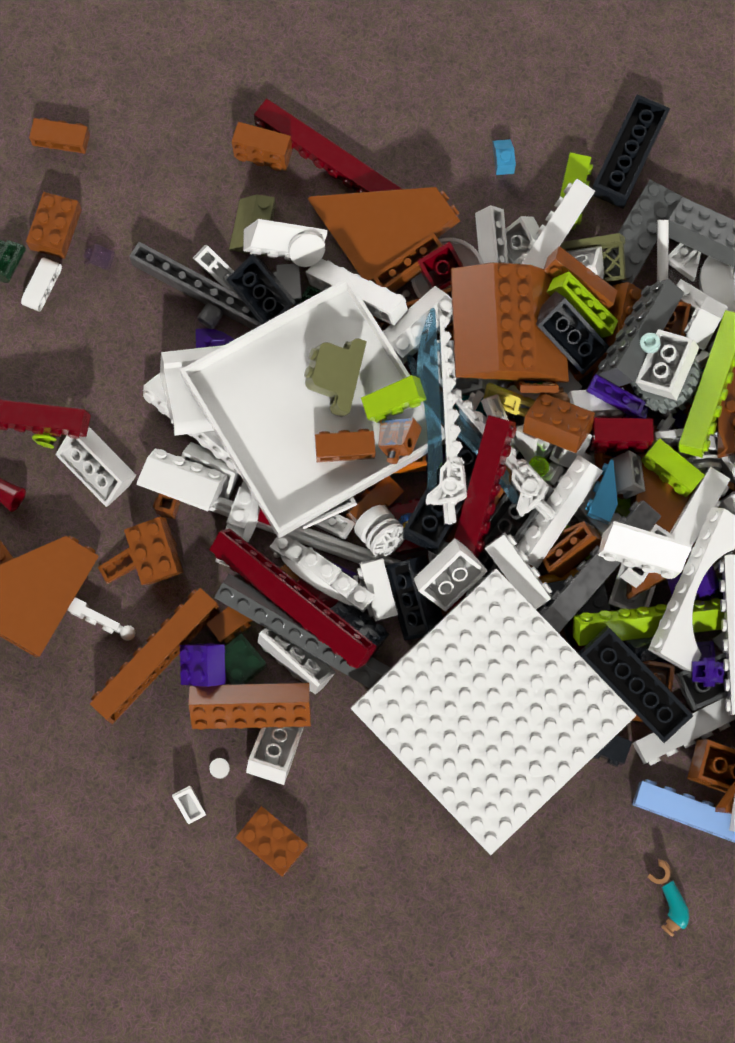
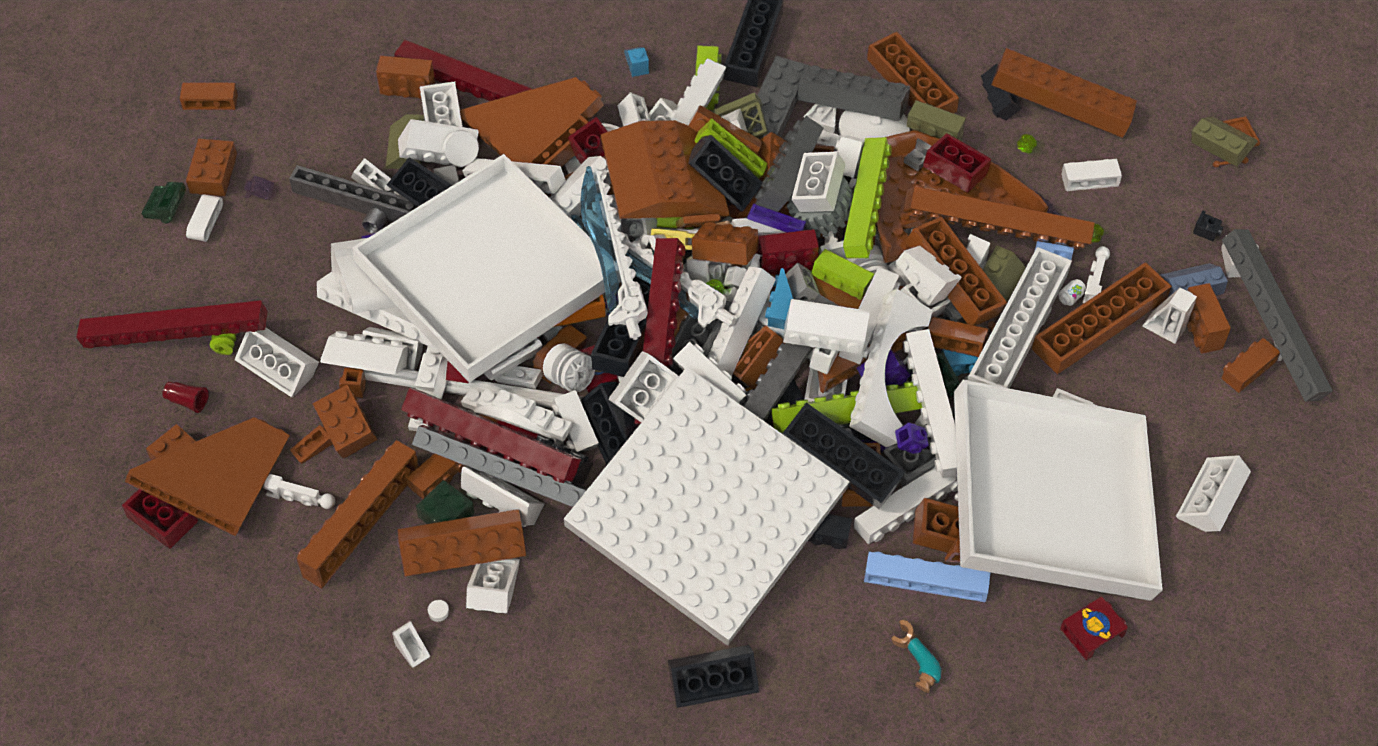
camera: 10 degrees left, 20 degrees down
(202, 664) = (407, 507): dark purple brick -> none
(272, 841) = (502, 666): dark orange brick -> none
(293, 193) = (441, 104): none -> white slope
(335, 373) = (503, 231): olive brick -> none
(345, 445) = (522, 292): dark orange brick -> none
(394, 399) = (563, 243): lime brick -> none
(398, 437) = (573, 274): dark orange torso -> none
(470, 884) = (713, 676): none -> black slope
(650, 342) = (798, 163): light aqua tile -> none
(662, 249) = (797, 100): white piece -> none

